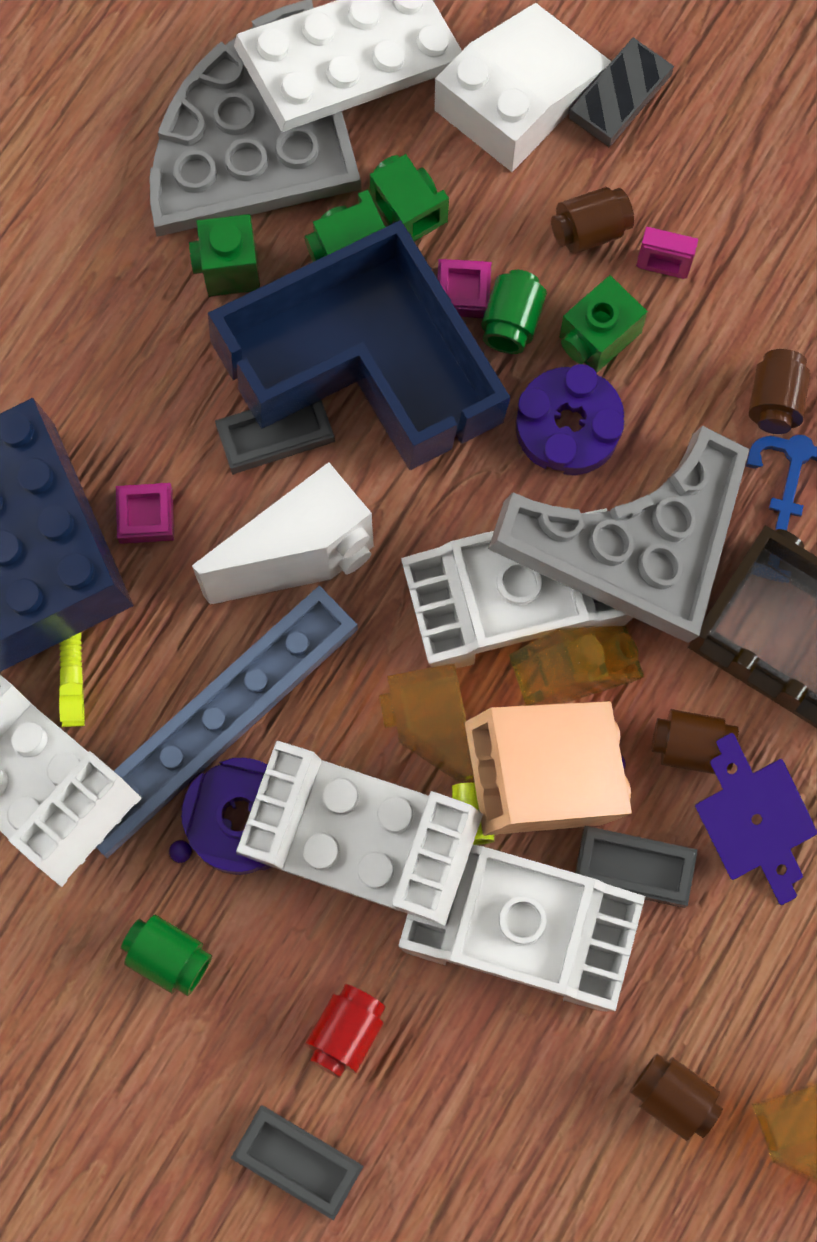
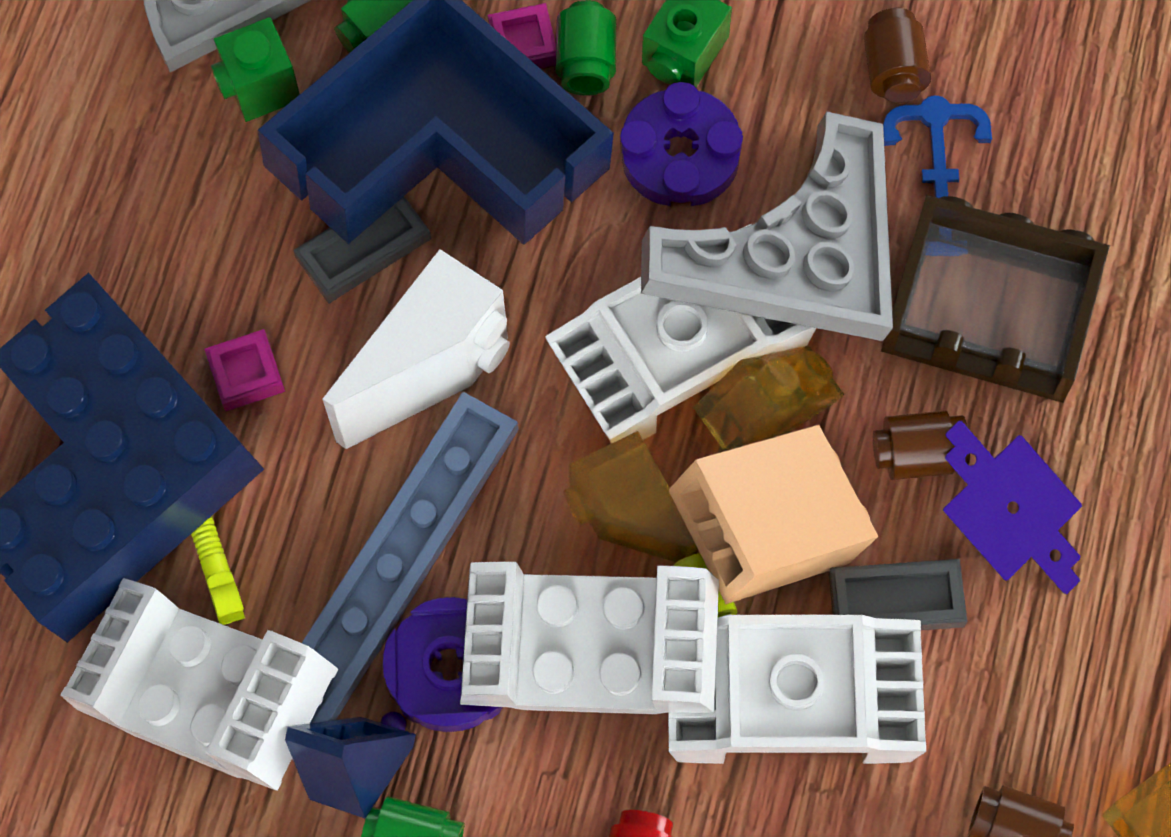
camera: 15 degrees left, 5 degrees down
(131, 874) = (347, 760): none -> dark blue slope

